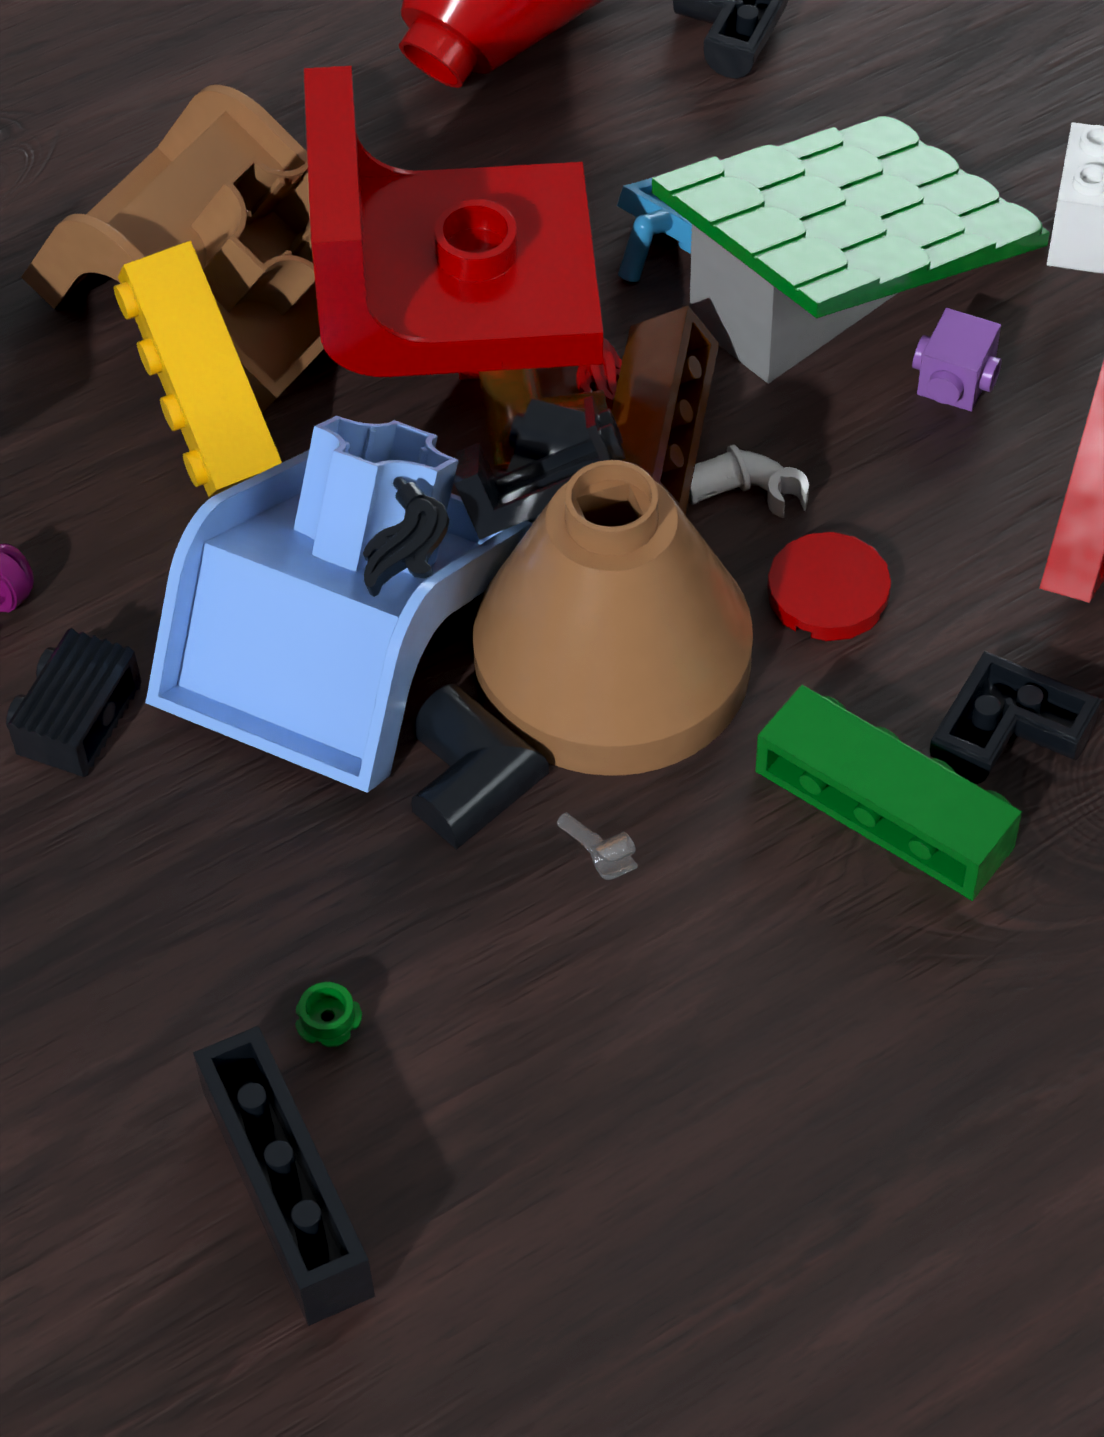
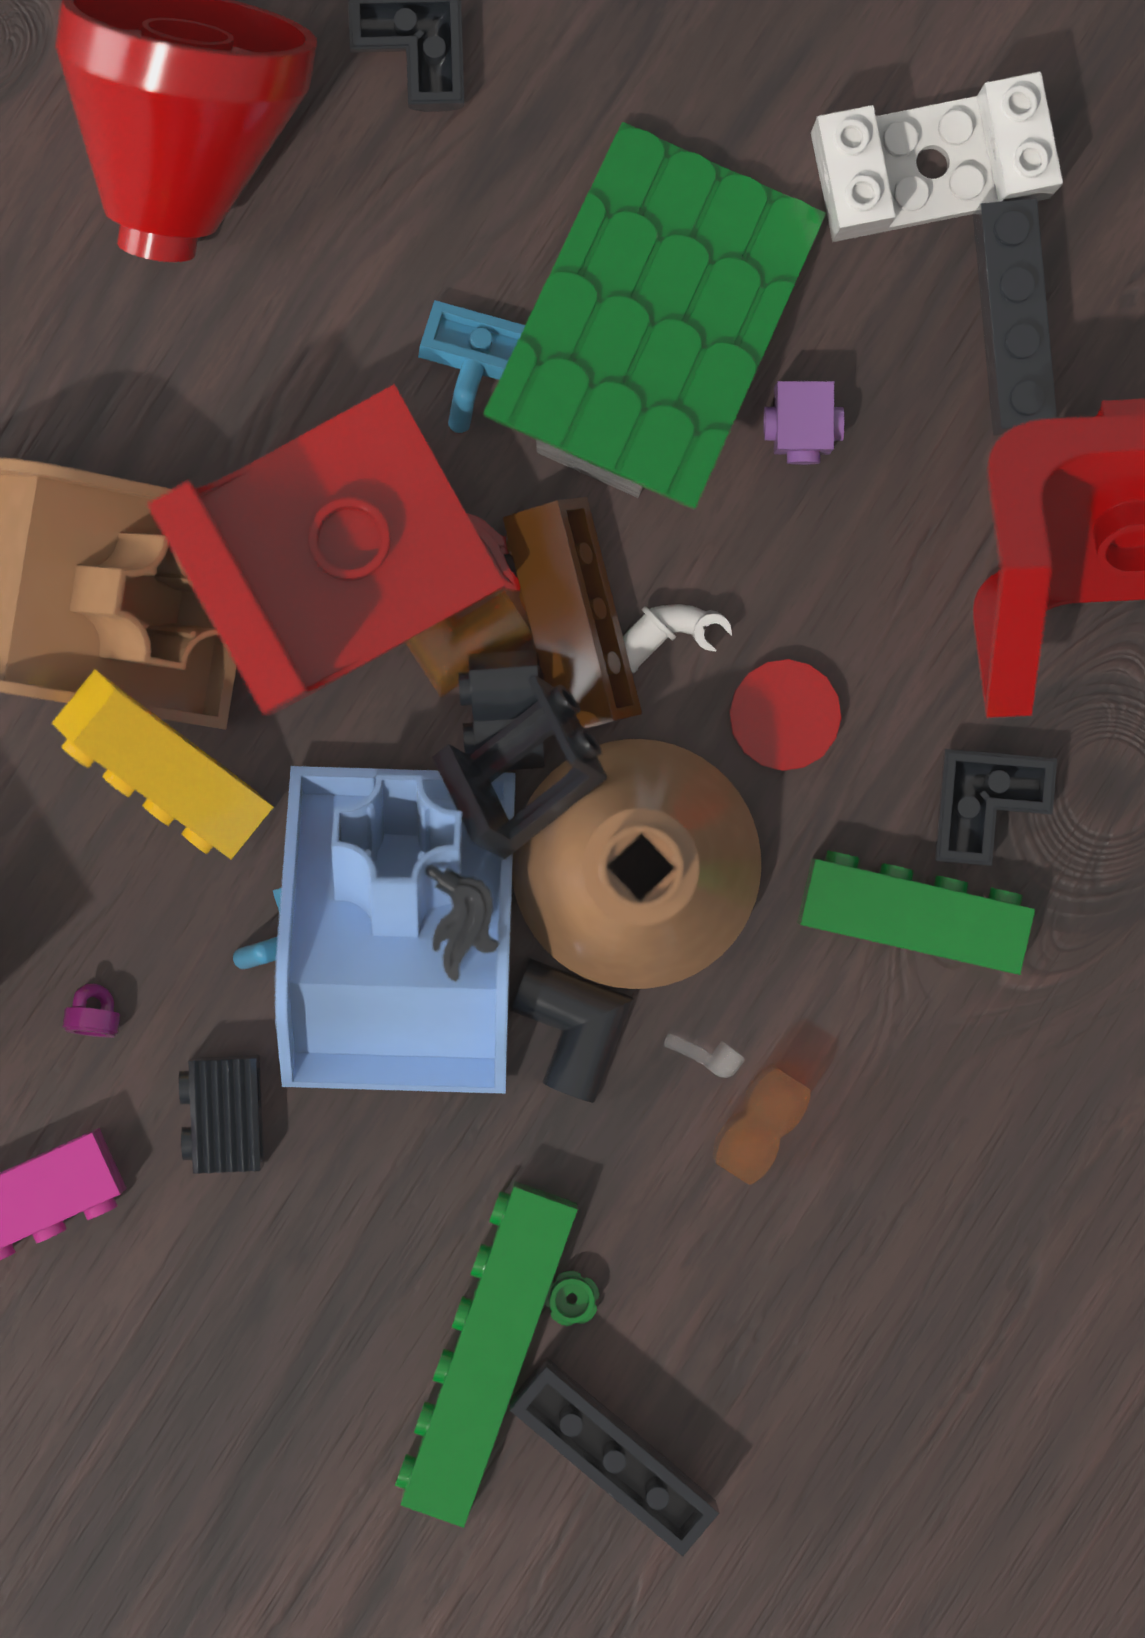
camera: 30 degrees left, 35 degrees up
(147, 1071) = (488, 1353): none -> green brick
(631, 913) = (752, 1136): none -> clear orange brick

